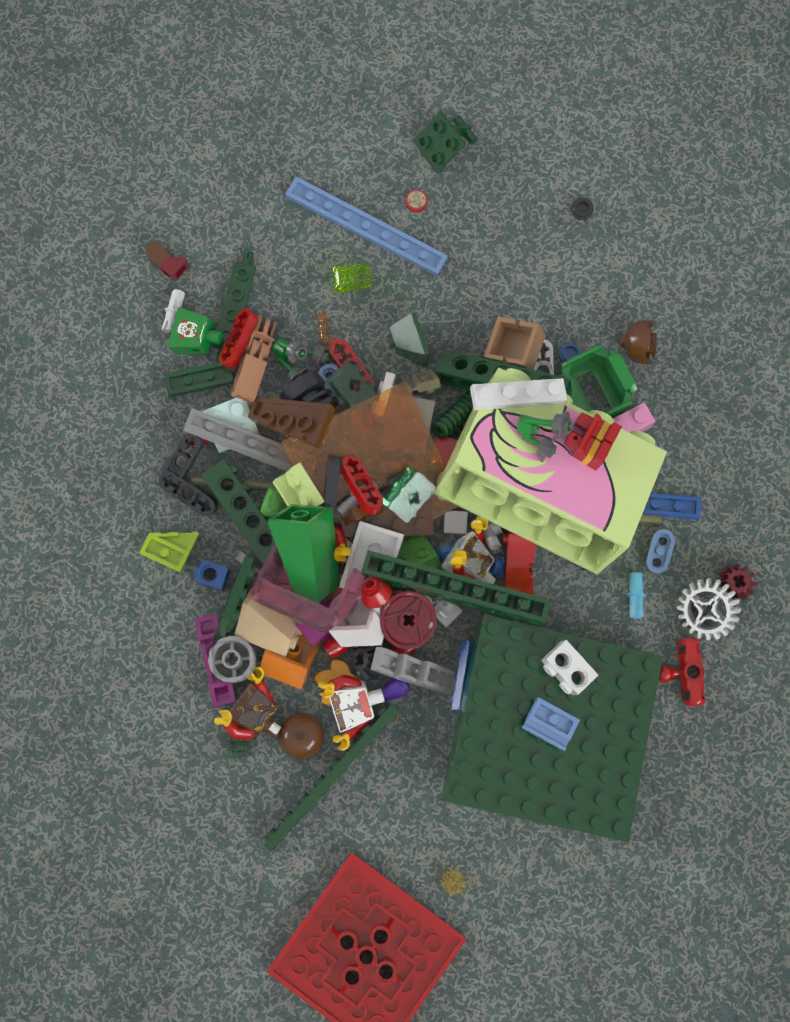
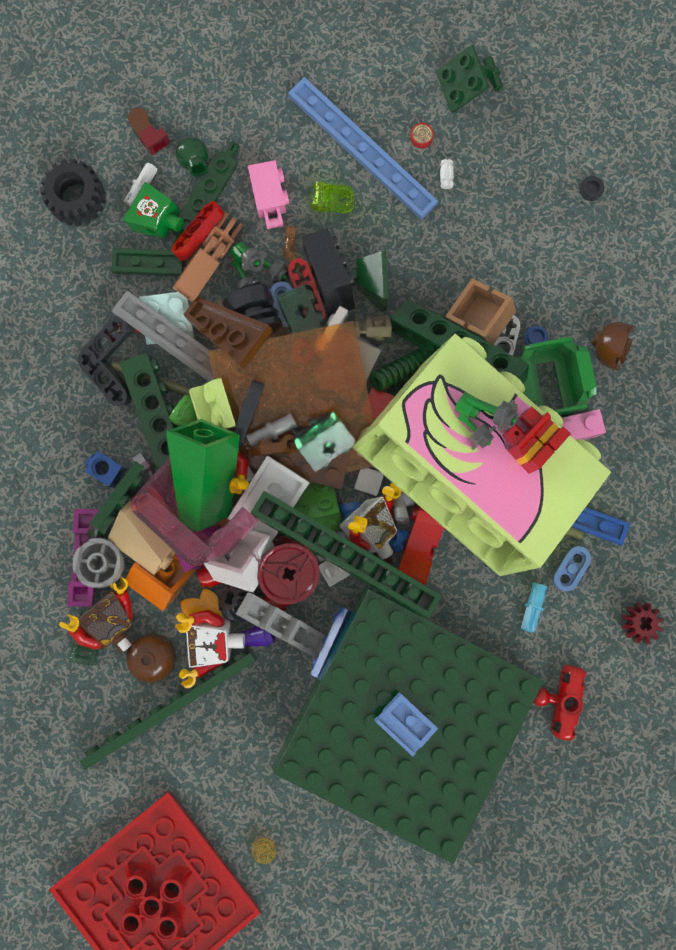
camera: 15 degrees right, 5 degrees up
(102, 321) = (60, 179): none -> black tyre
(170, 548) = (70, 429): lime wing -> none
(214, 272) = (192, 155): none -> dark green piece
(292, 288) = (268, 193): none -> bright pink brick
(361, 494) = (274, 428): red beam -> none
(367, 343) = (329, 270): none -> black wedge
(375, 593) = (260, 537): red cone -> none
(448, 229) = (446, 174): none -> white piece
(518, 394) = (468, 368): white plate -> none
(572, 663) = (445, 668): white brick -> none
(696, 623) = (611, 652): white gear -> none

